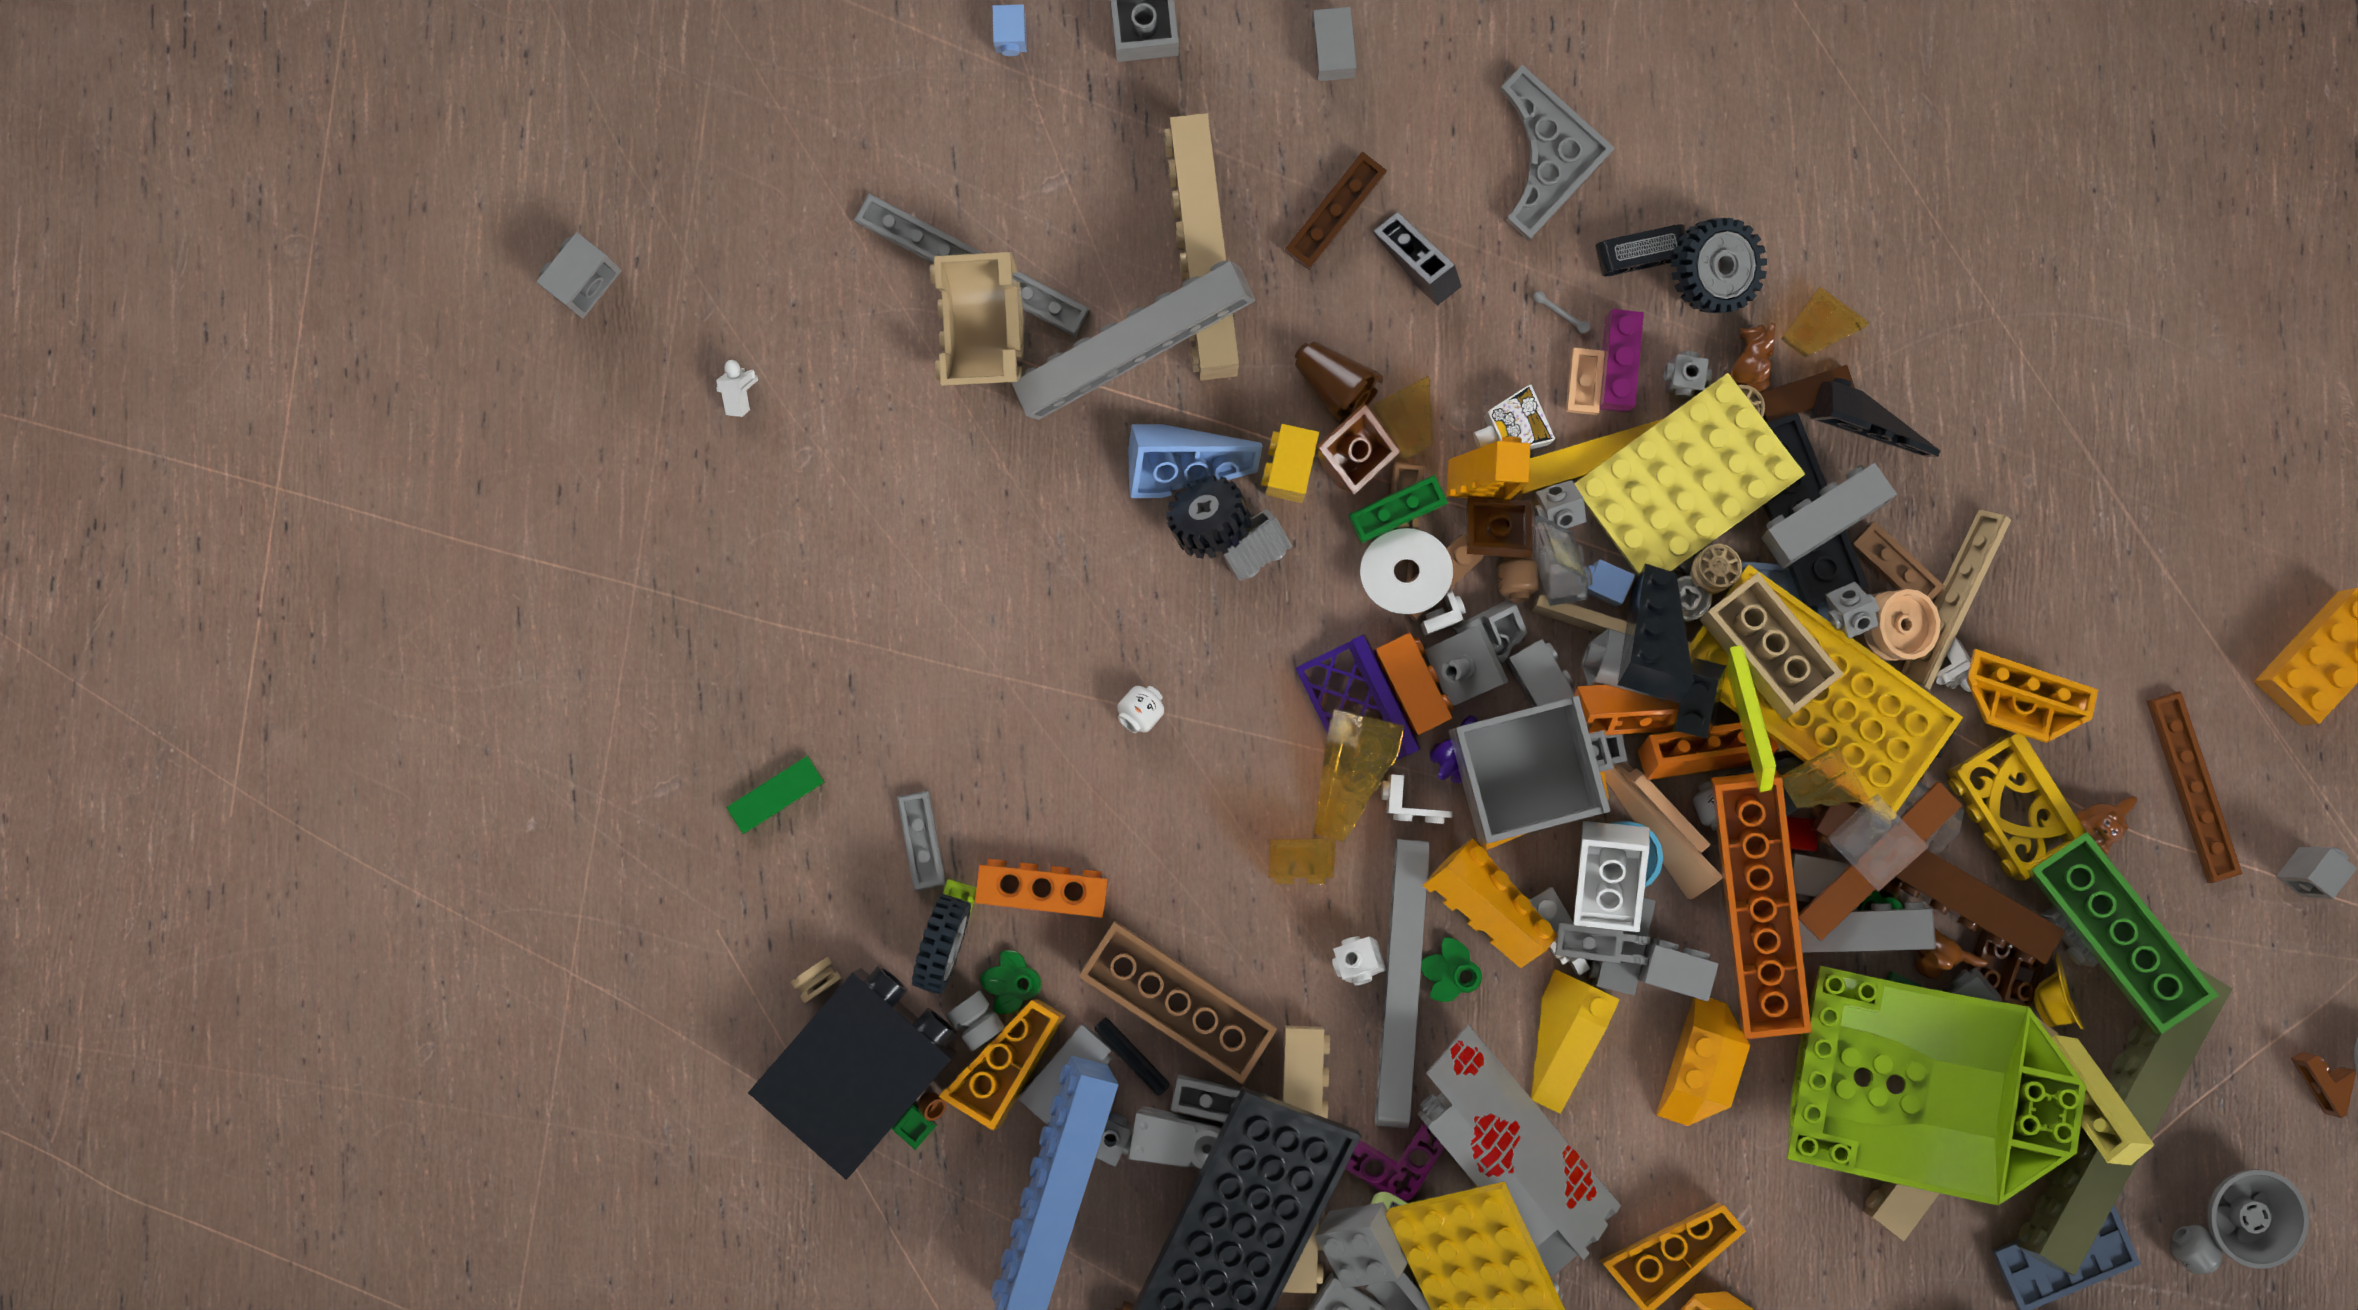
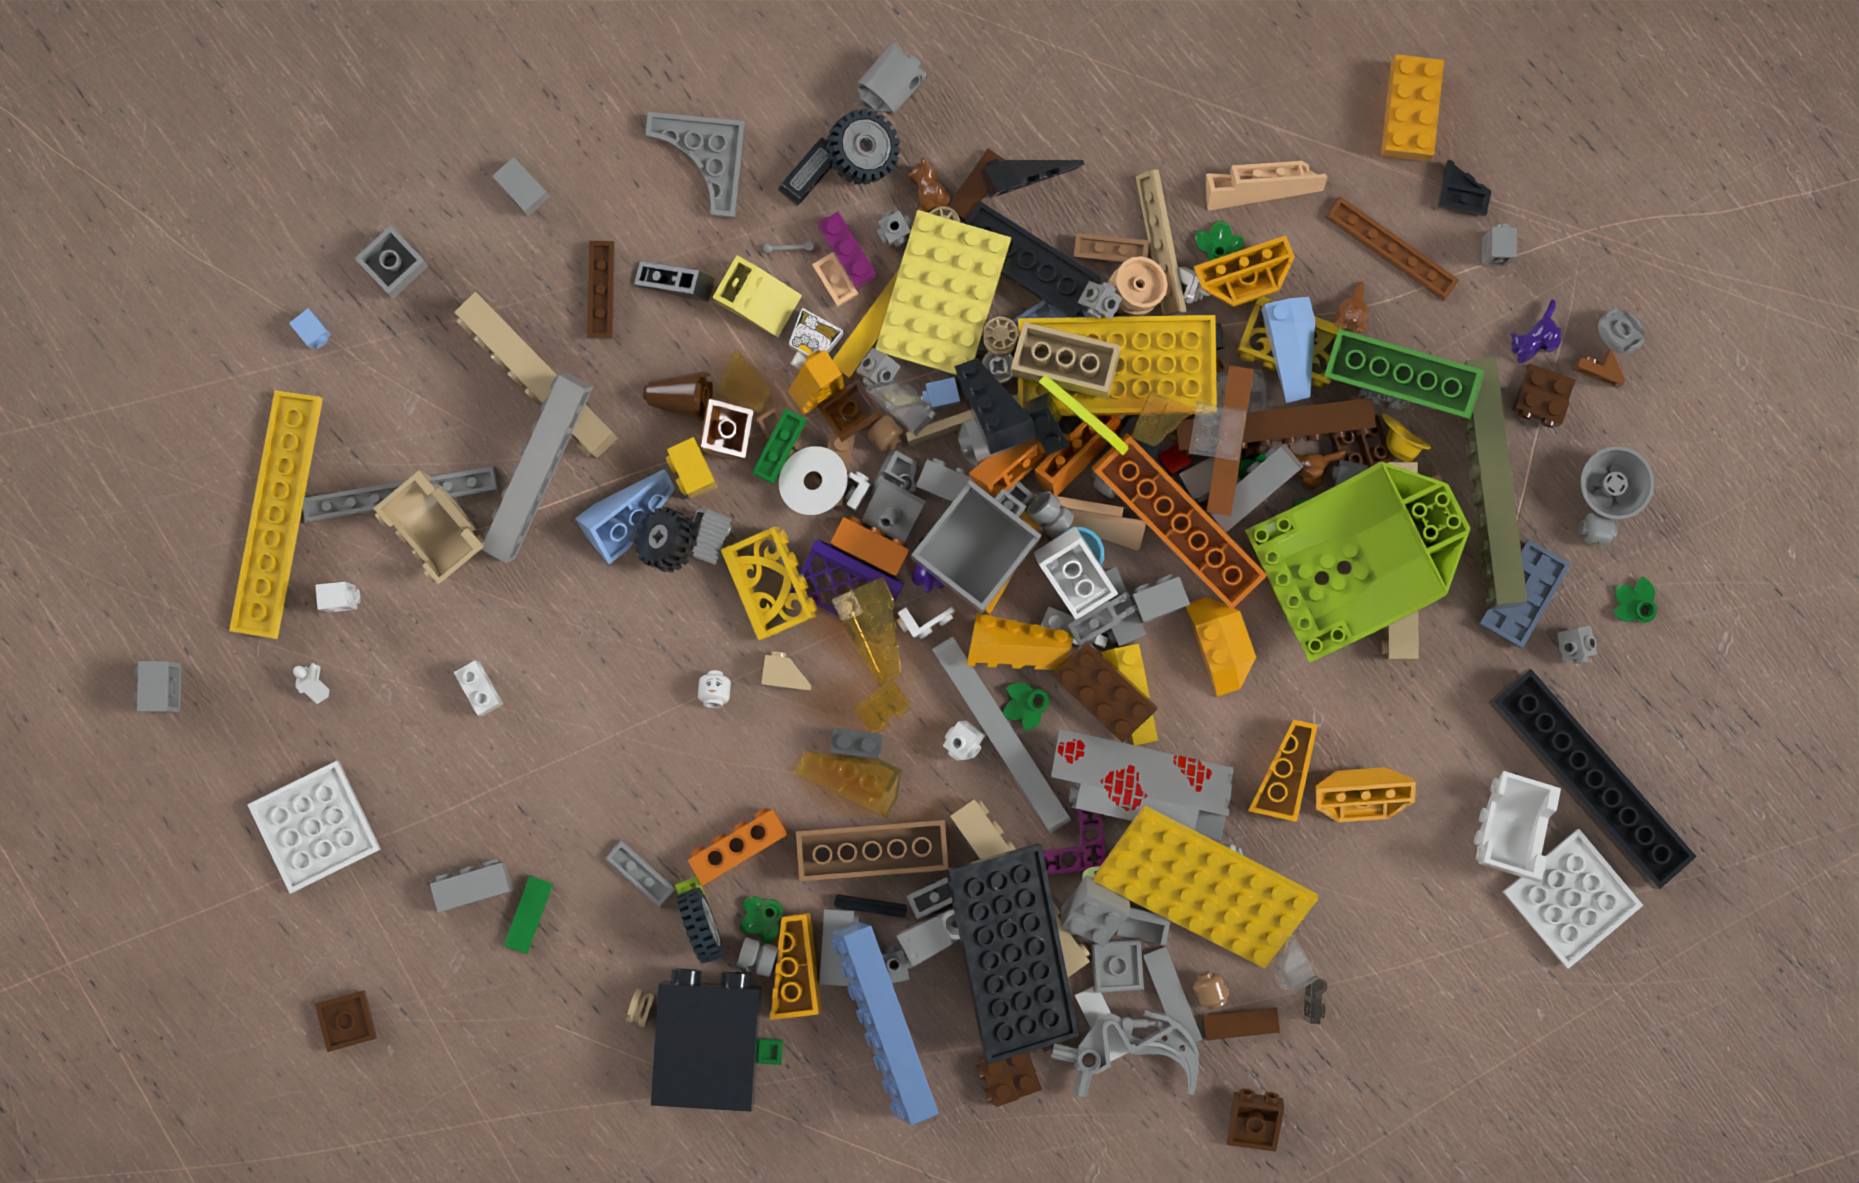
camera: 40 degrees left, 0 degrees up
(508, 761) = (346, 1021): none -> reddish brown plate
(627, 538) = (314, 827): none -> white plate
(739, 720) = (471, 885): none -> light grey brick
(828, 320) = (337, 597): none -> white brick
(831, 190) = (276, 514): none -> yellow plate
(901, 523) = (478, 688): none -> white brick
(931, 1106) = (770, 1030): dark orange hinge -> none
(1220, 920) = (862, 781): none -> clear yellow wedge
(1224, 746) = (783, 673): none -> tan slope
(1245, 877) = (856, 743): none -> dark grey brick
(1262, 602) = (738, 569): none -> yellow fence
(1491, 337) = (756, 296): none -> light yellow slope
(1546, 1022) = (1104, 691): none -> reddish brown plate
(1629, 793) = (1048, 512): none -> light grey wheel
(1800, 218) = (890, 80): none -> light grey cylinder
(1821, 324) = (954, 134): clear yellow wing -> none
(1828, 515) = (1043, 252): light grey brick -> none
(2017, 640) = (1218, 239): none -> green plate
(2022, 801) = (1291, 337): none -> light blue wedge
(2104, 1113) = (1470, 490): light yellow brick -> none
(2107, 615) = (1261, 183): none -> light nougat wedge
(2241, 1064) = (1543, 396): none -> reddish brown plate
(2291, 1001) = (1542, 336): none -> dark purple animal
(2316, 785) = (1462, 192): none -> black wing

